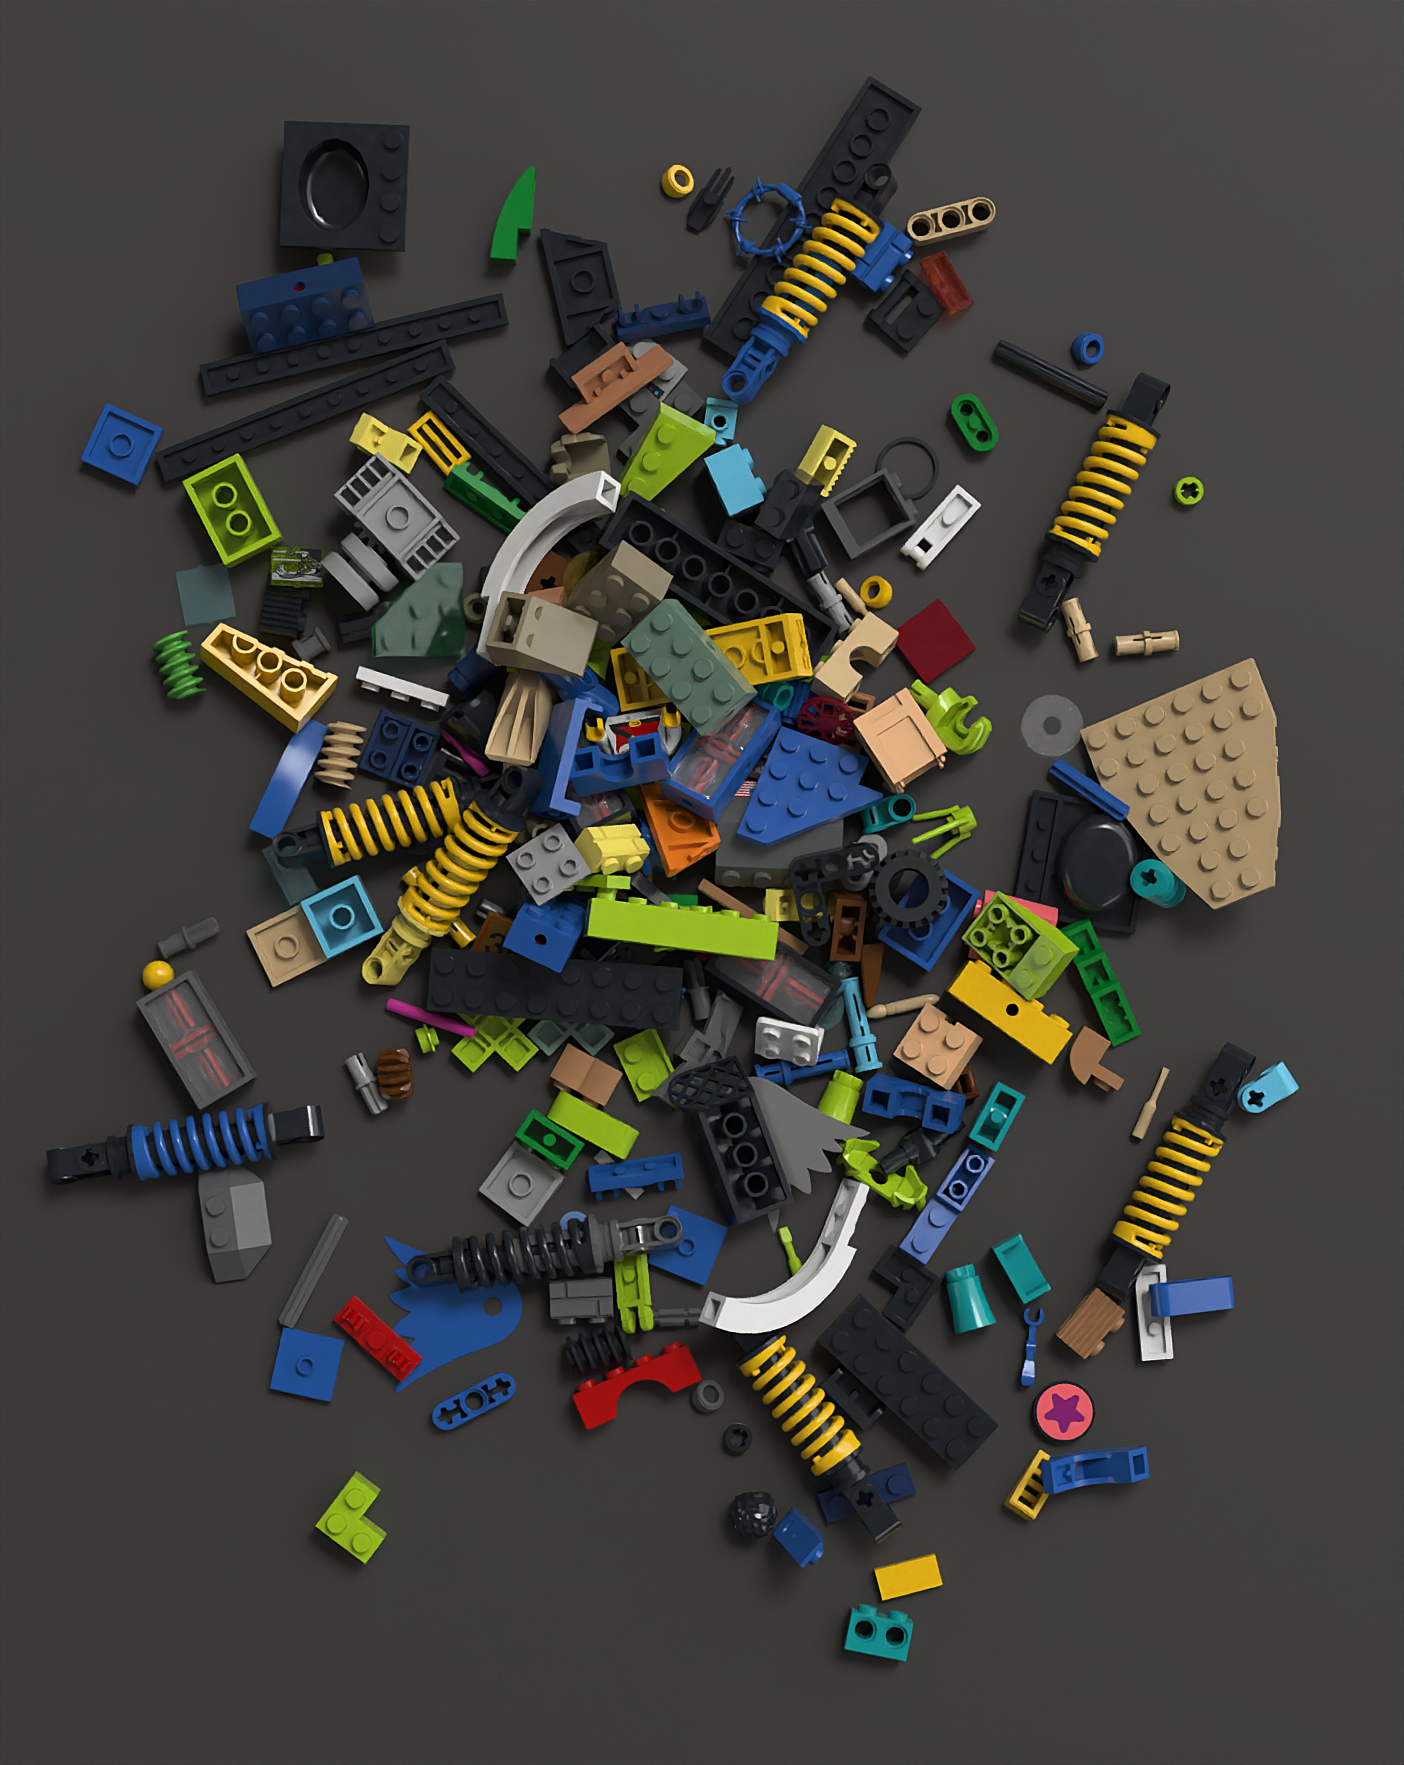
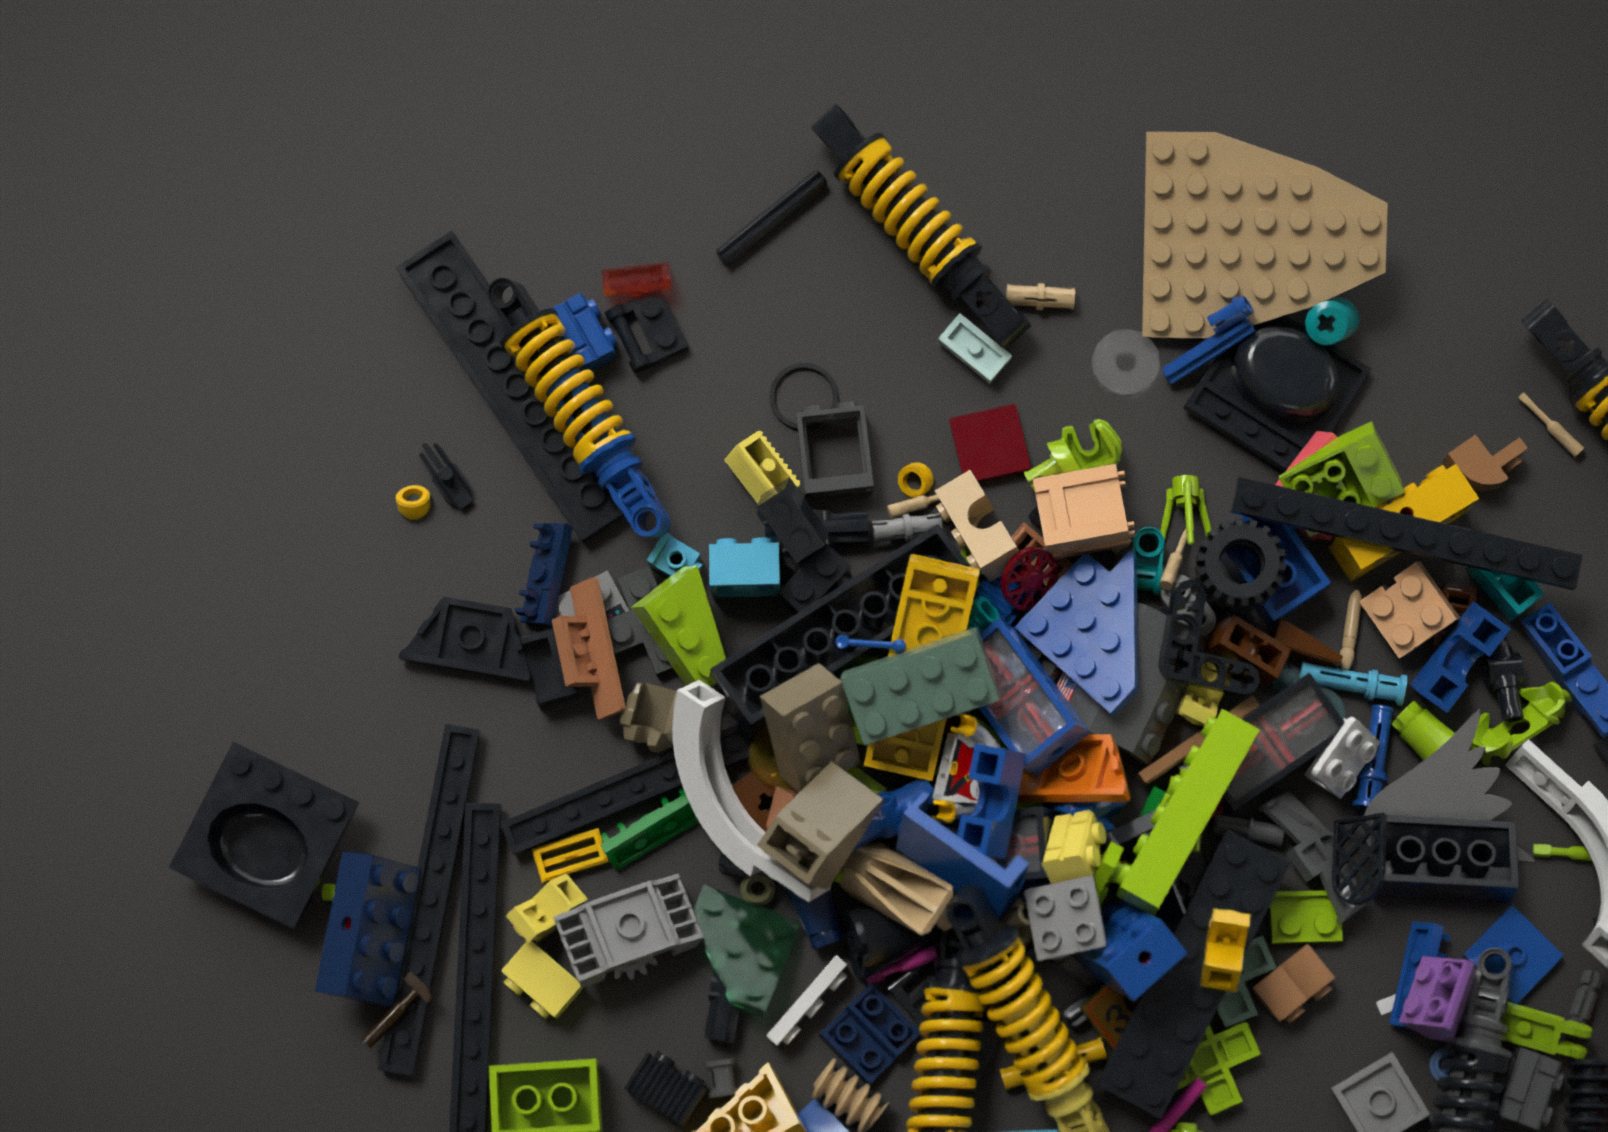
camera: 60 degrees left, 10 degrees down
(253, 359) = (397, 1010): none -> dark brown piece
(296, 566) = (633, 1057): piece -> none
(327, 465) = (542, 980): none -> light yellow brick
(360, 571) = (666, 987): light grey wheel -> none
(514, 219) = (378, 679): green slope -> none
(549, 1139) = (1346, 1050): green brick -> none
(578, 1004) = (1224, 950): none -> yellow brick
(593, 1124) = (1348, 999): lime beam -> none
(621, 1194) = (1438, 997): none -> medium lavender slope
(702, 590) = (845, 642): none -> blue hinge
(758, 190) = (477, 395): blue piece -> none
(876, 836) = (1173, 564): none -> tan piece
(941, 526) = (878, 386): white plate -> none
(961, 211) = (575, 234): tan beam -> none
(973, 424) = (788, 307): green plate -> none
(993, 1015) = (1406, 533): none -> black plate
(1009, 593) = (974, 348): none -> light aqua plate
(1080, 344) = (757, 178): blue piece -> none
(1101, 983) = (1411, 422): green slope -> none
(1130, 800) = (1231, 314): none -> blue pin
(1146, 643) = (1082, 236): tan pin -> none
(1189, 500) = (944, 145): lime bush -> none
(1271, 1086) = (1582, 299): medium azure piece -> none

